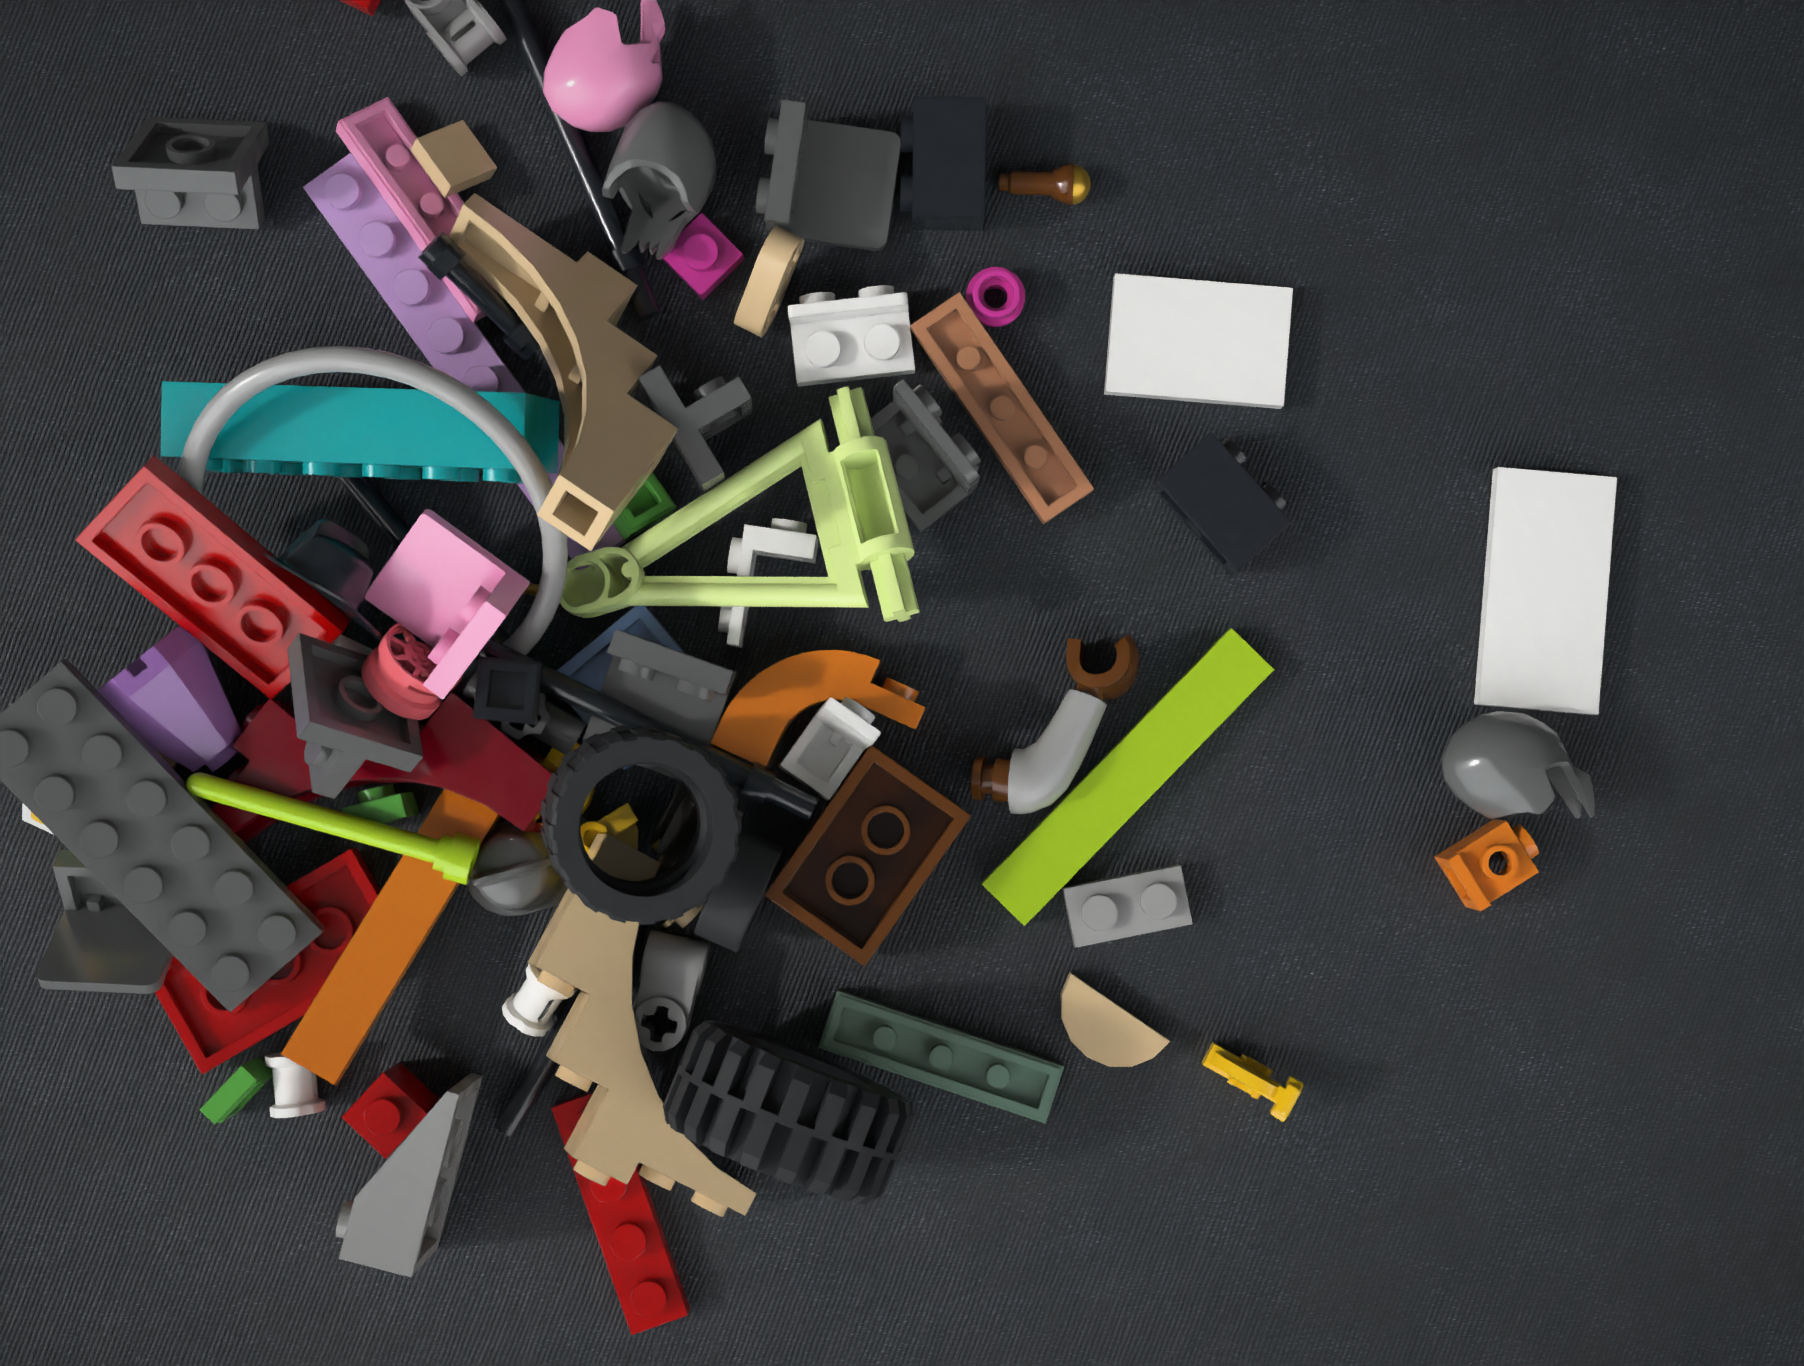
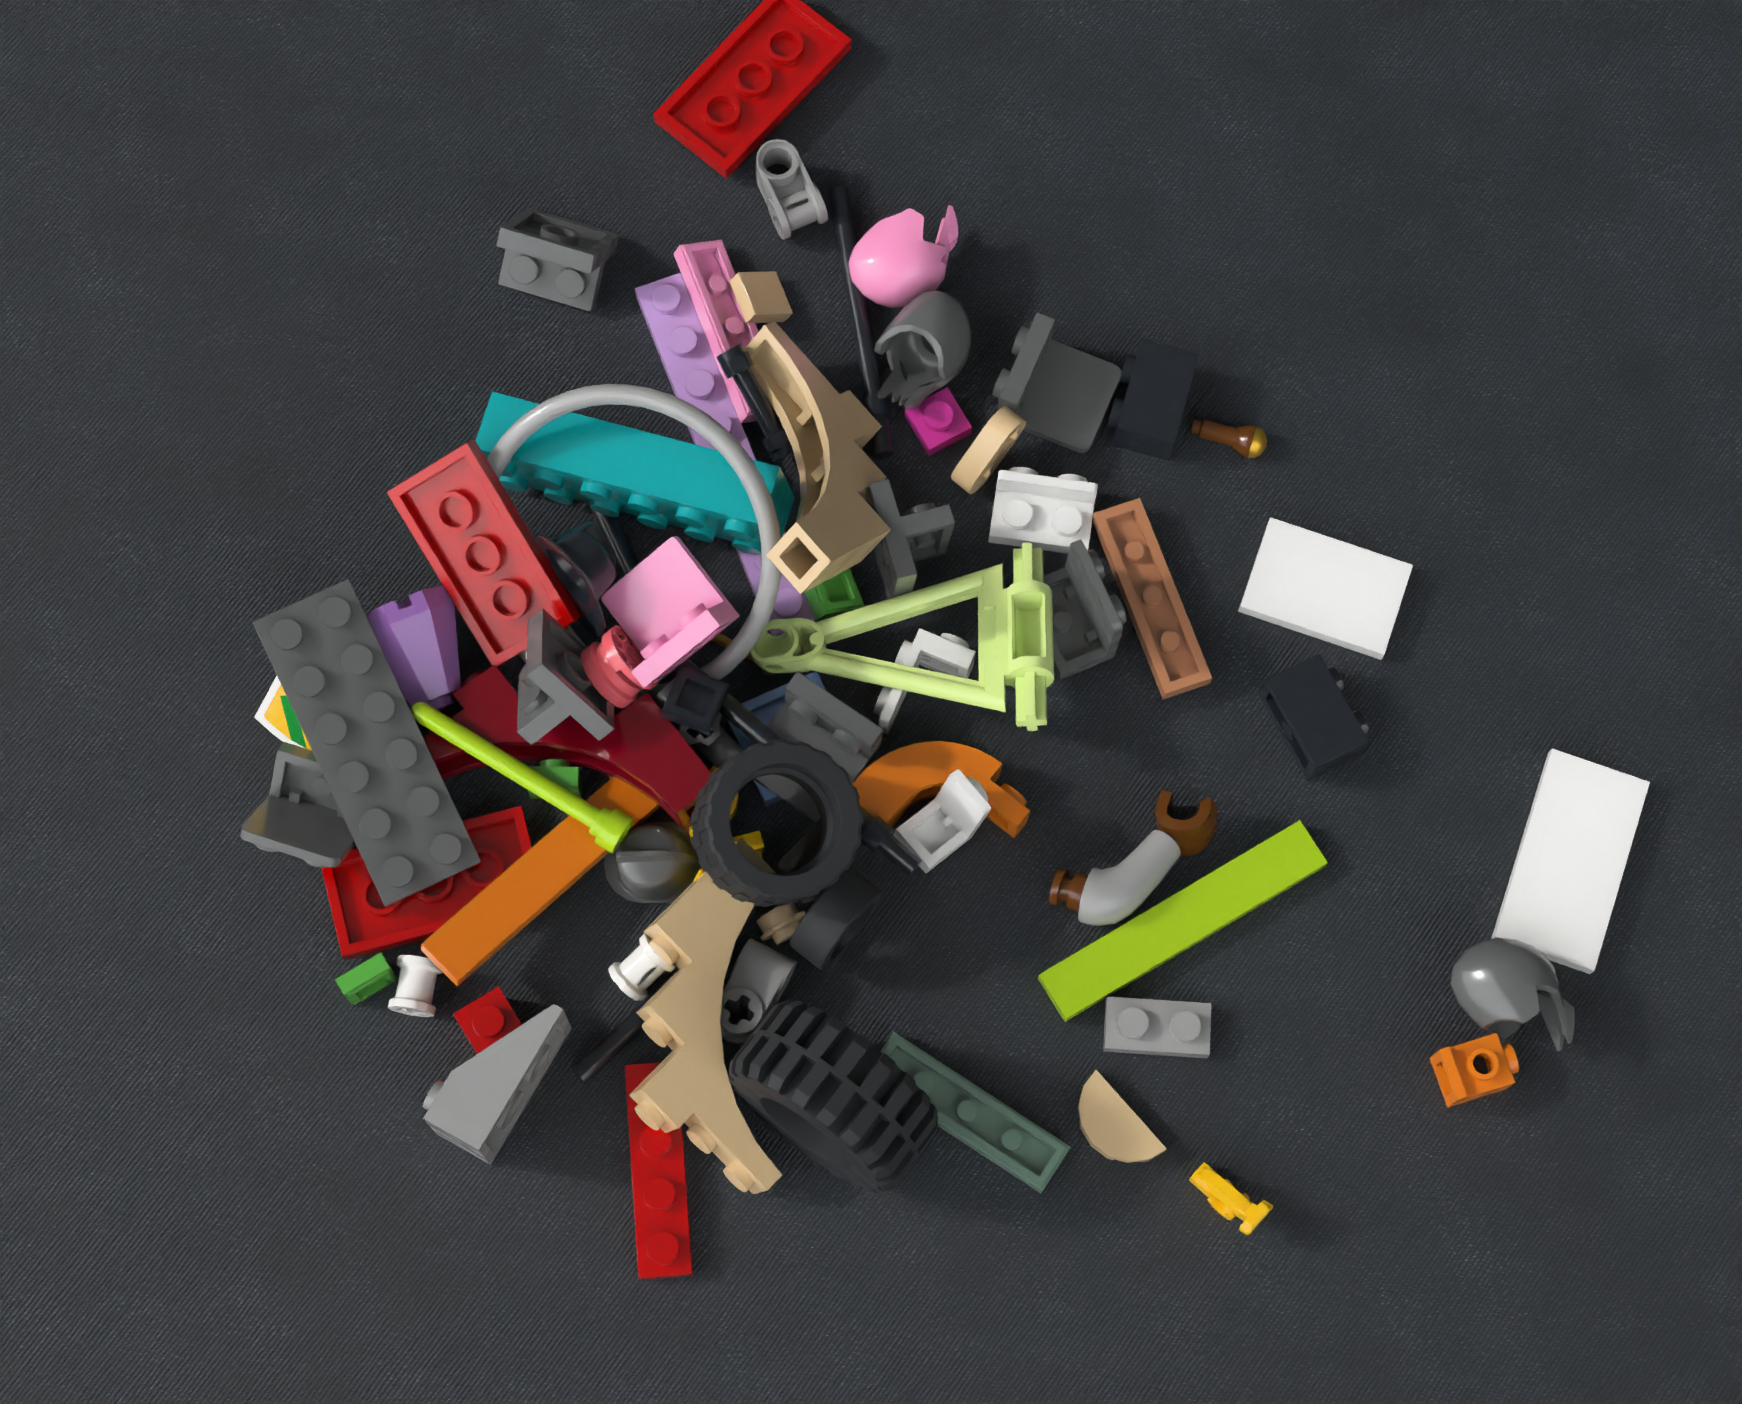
camera: 10 degrees right, 15 degrees down
(868, 855) = (951, 918): reddish brown brick -> none
(1000, 279) = (1172, 499): dark pink plate -> none

